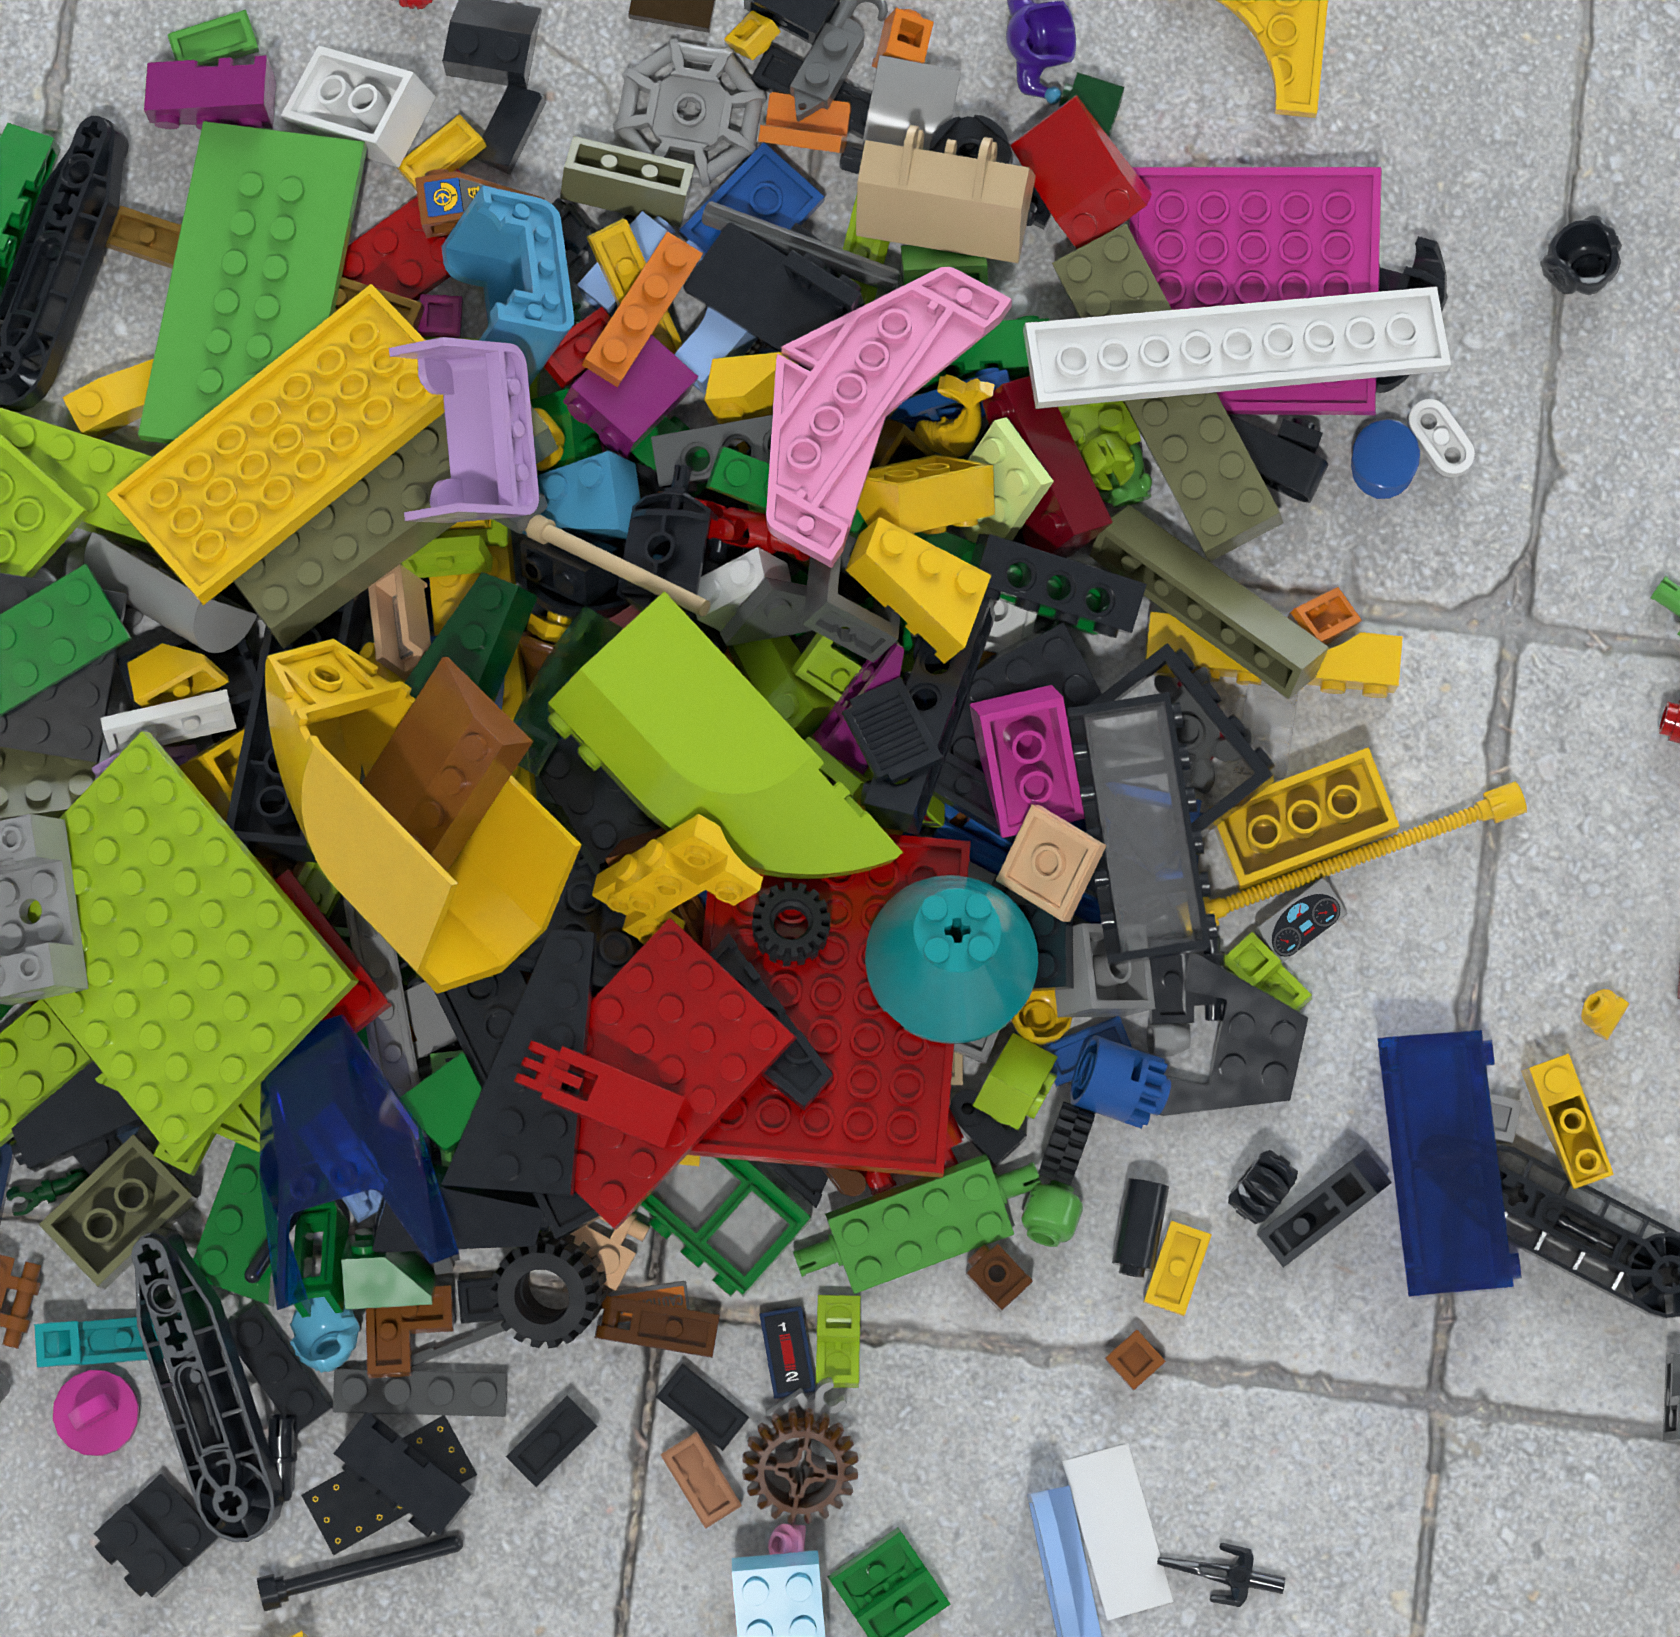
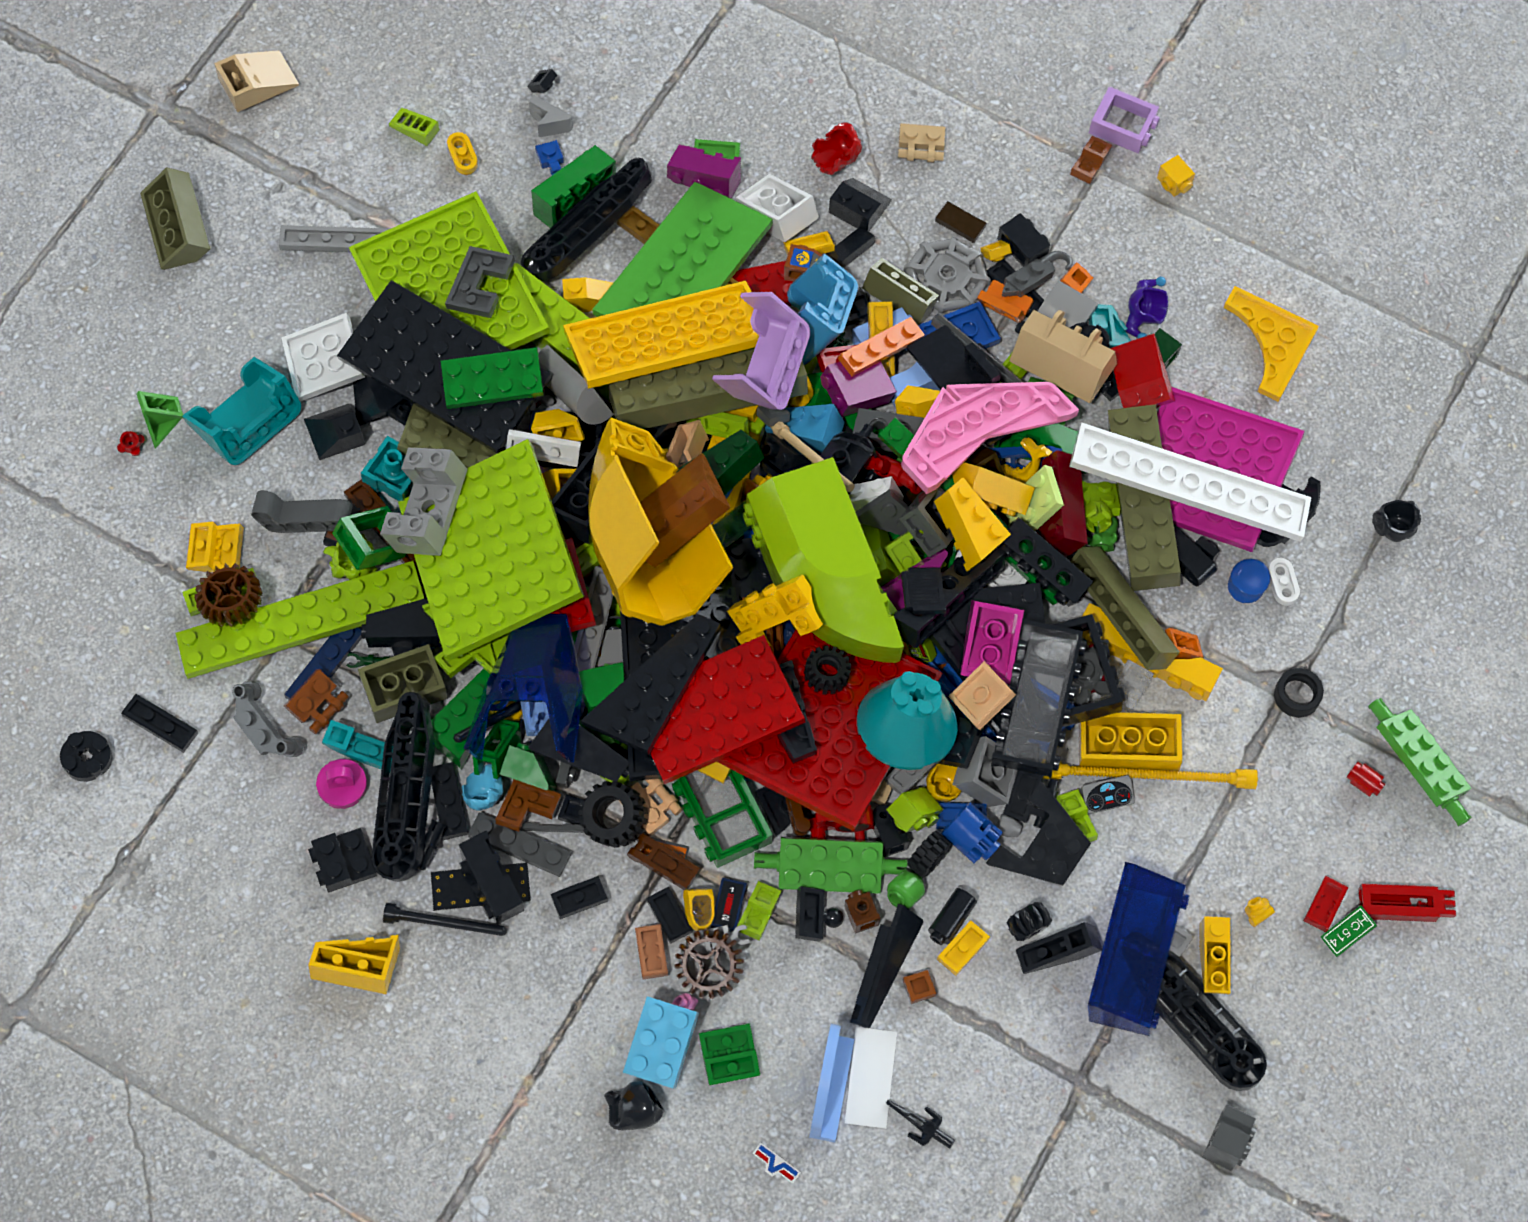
camera: 20 degrees right, 15 degrees down
(615, 1100) = (693, 709): red hinge -> none
(744, 1378) = (699, 907): none -> rock
(923, 1314) = (811, 914): none -> black plate
(989, 94) = (1108, 319): none -> teal wing
(1066, 1345) = (885, 961): none -> black wedge
(1542, 590) = (1306, 677): none -> black tyre

